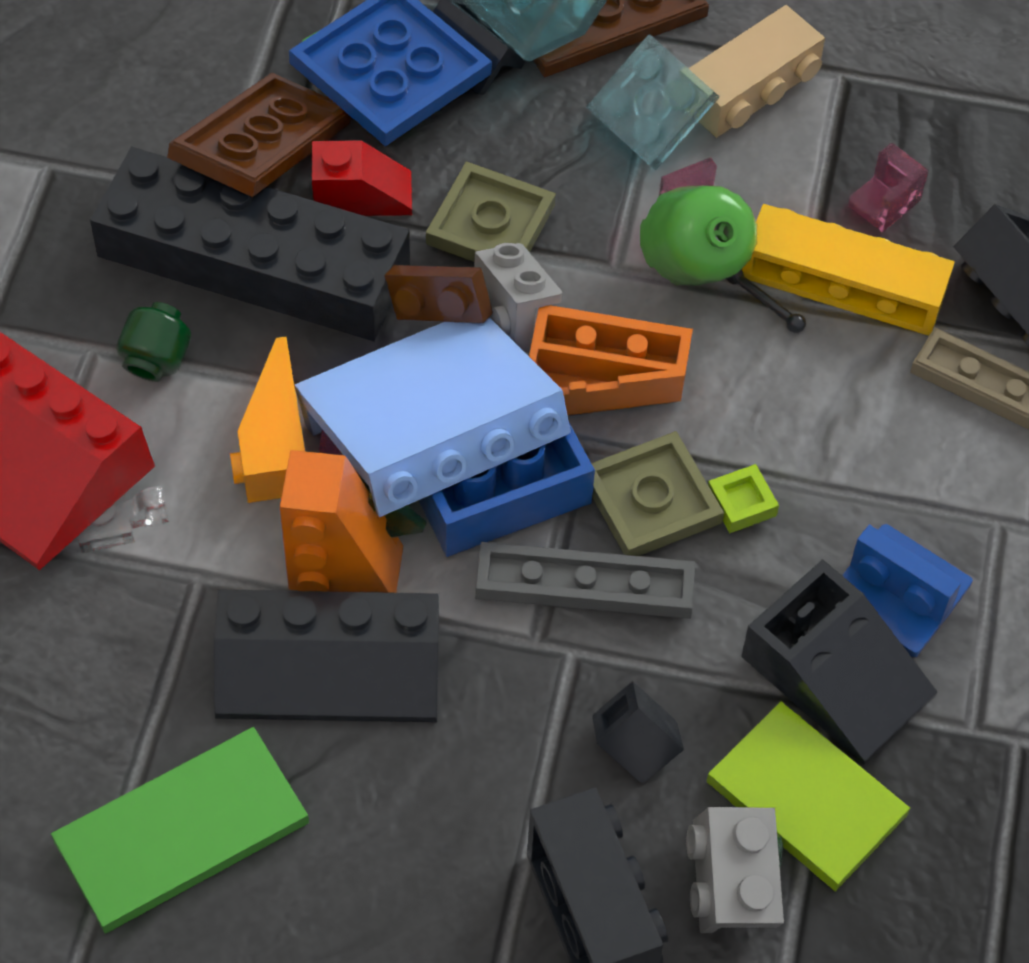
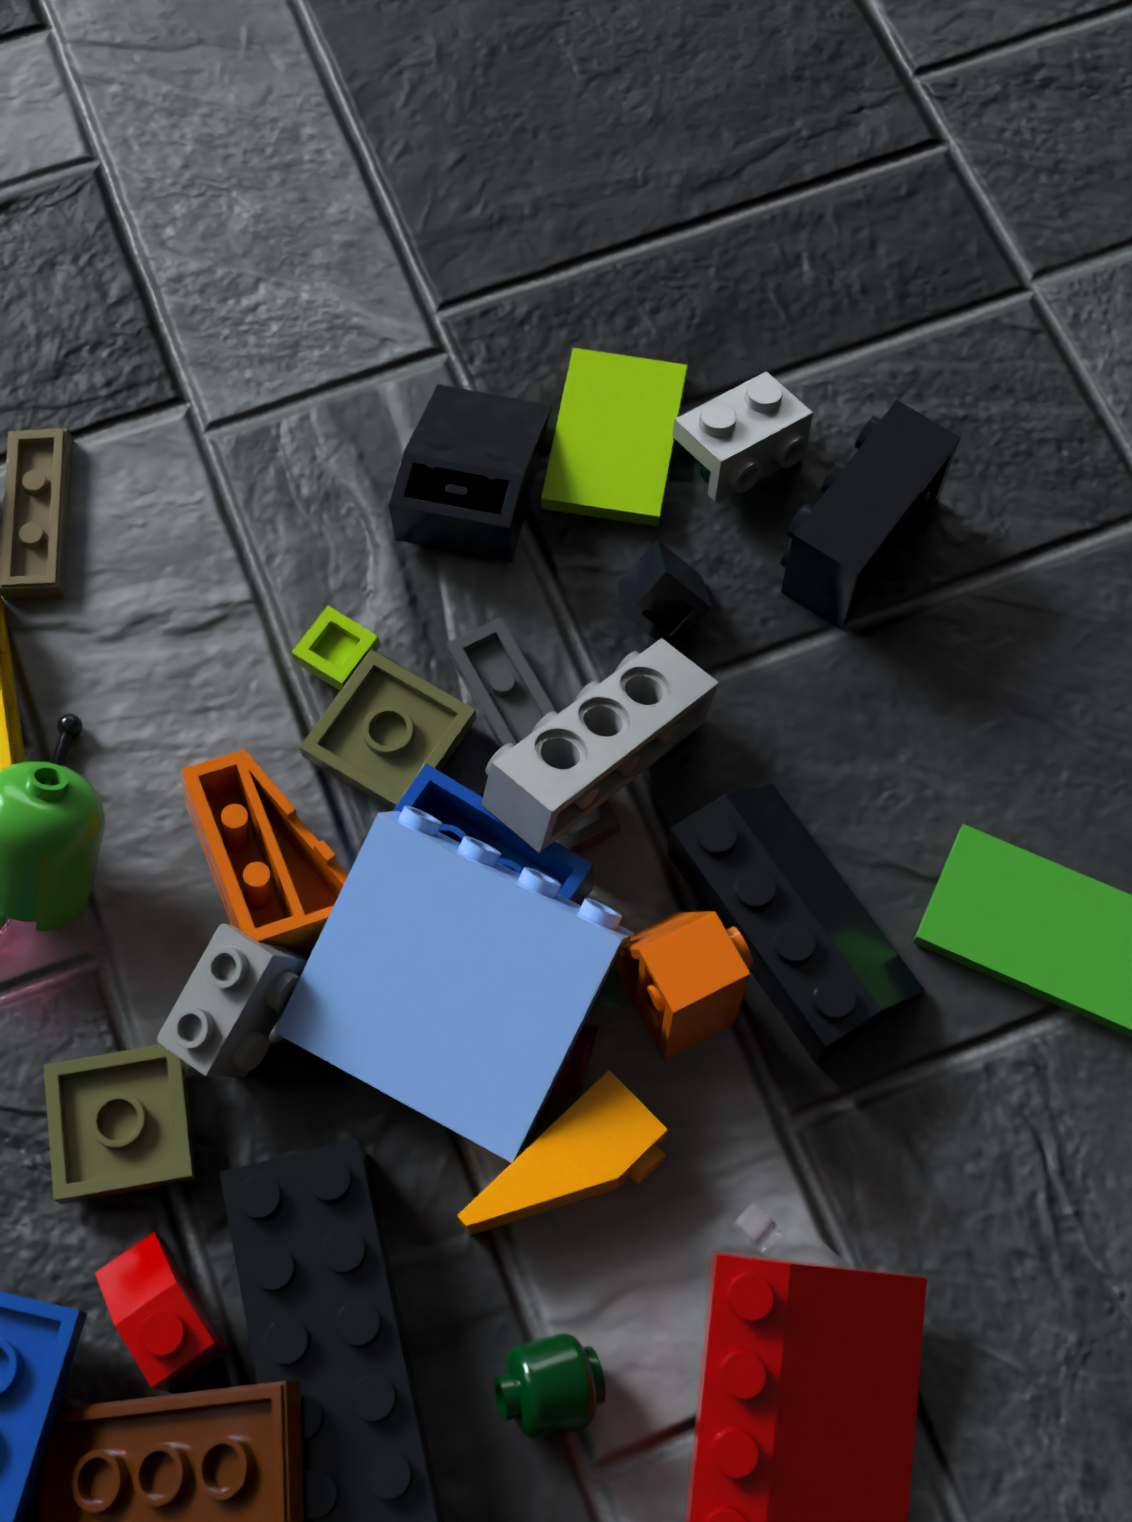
camera: 120 degrees left, 10 degrees up
(439, 293) = (293, 1074): reddish brown plate -> none
(536, 674) = (597, 743): none -> light grey brick
(905, 584) = (343, 461): blue bracket -> none

